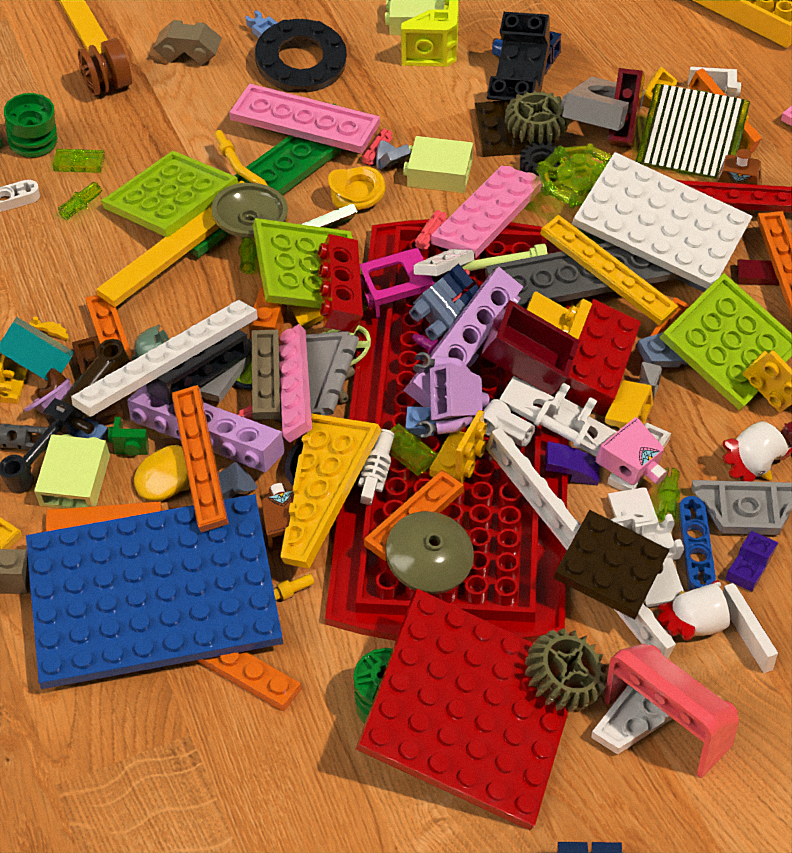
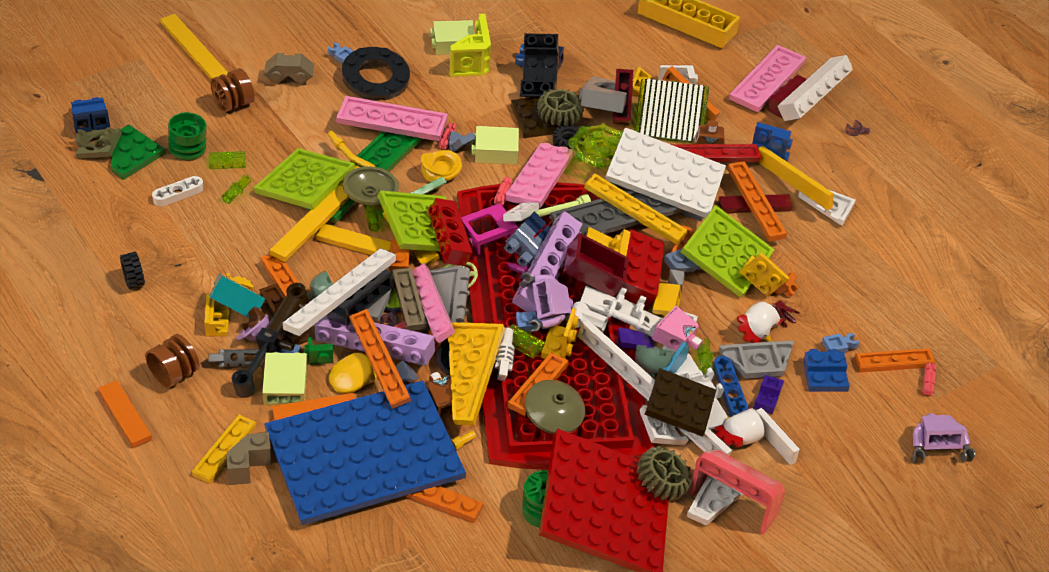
camera: 15 degrees left, 5 degrees down
(212, 282) = (351, 240): none -> yellow tile
(237, 397) = (389, 317): none -> piece
(580, 607) = (661, 432): none -> white wing
(591, 492) = (652, 359): none -> sand green cylinder
(624, 497) = (678, 358): none -> dark azure piece

